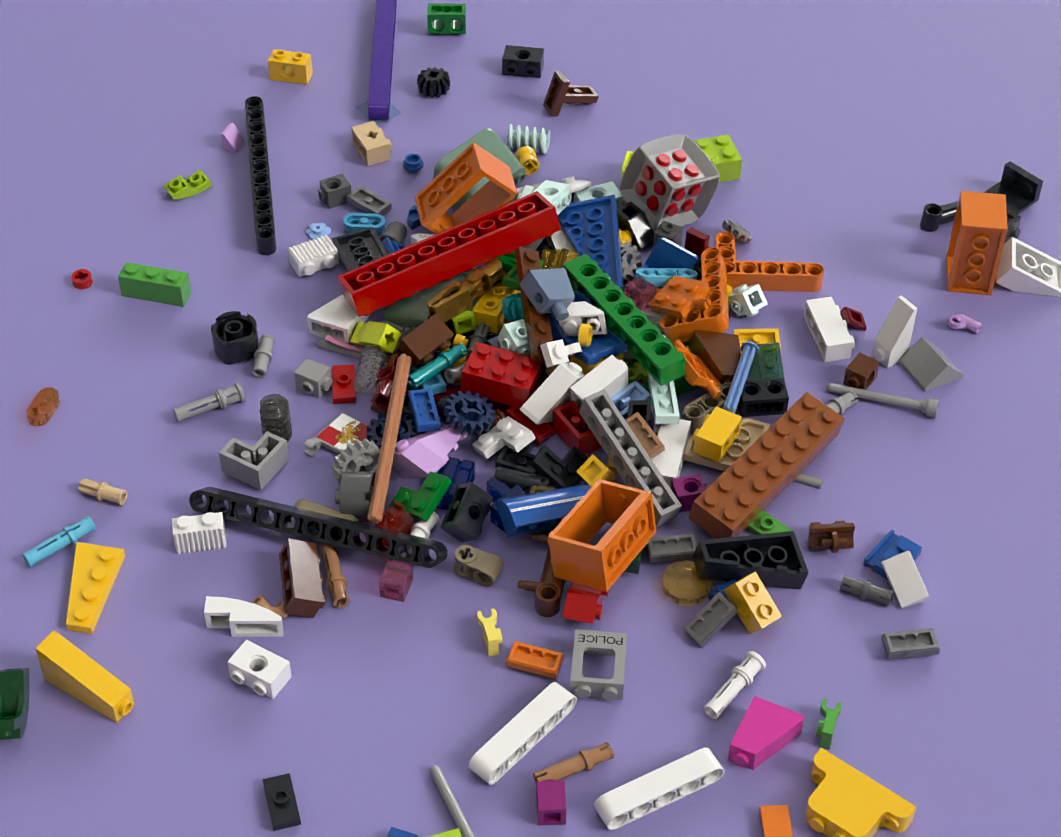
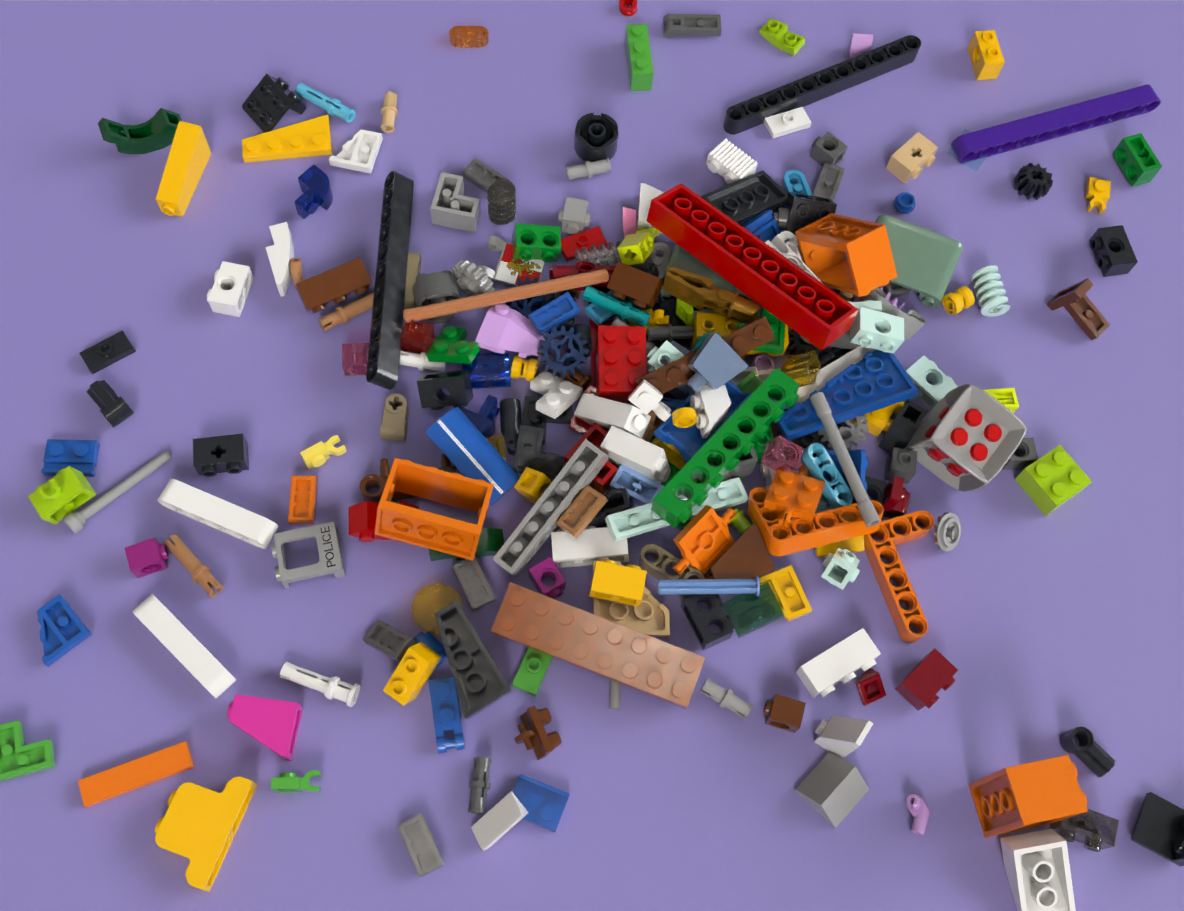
camera: 65 degrees right, 20 degrees up
(34, 587) = (271, 101): none -> black bracket
(136, 239) = (692, 25): none -> dark grey plate
(142, 526) = (359, 152): none -> white wing
(172, 568) = (316, 191): none -> clear blue brick
(181, 413) = (522, 155): light grey pin -> none
(199, 532) = (362, 194): white brick -> none
(239, 428) = (481, 175): none -> flat silver plate
(285, 210) = (787, 122): none -> white plate
(317, 230) = (774, 158): light blue plant -> none
(331, 411) = (536, 237): none -> green brick
(360, 803) = (111, 406): none -> black piece
(402, 215) = (807, 209): none -> black bracket
(457, 716) = (220, 454): none -> black brick
(460, 53) = (1098, 192): none -> yellow plate
(467, 451) = (529, 371): none -> yellow wheel
(576, 185) = (934, 352): white dish -> none
(709, 252) = (865, 505): none -> light grey piece
(797, 600) = (446, 713): none -> blue plate
(859, 280) = (927, 680): none -> dark red brick
(928, 407) = (765, 798): light grey piece -> none

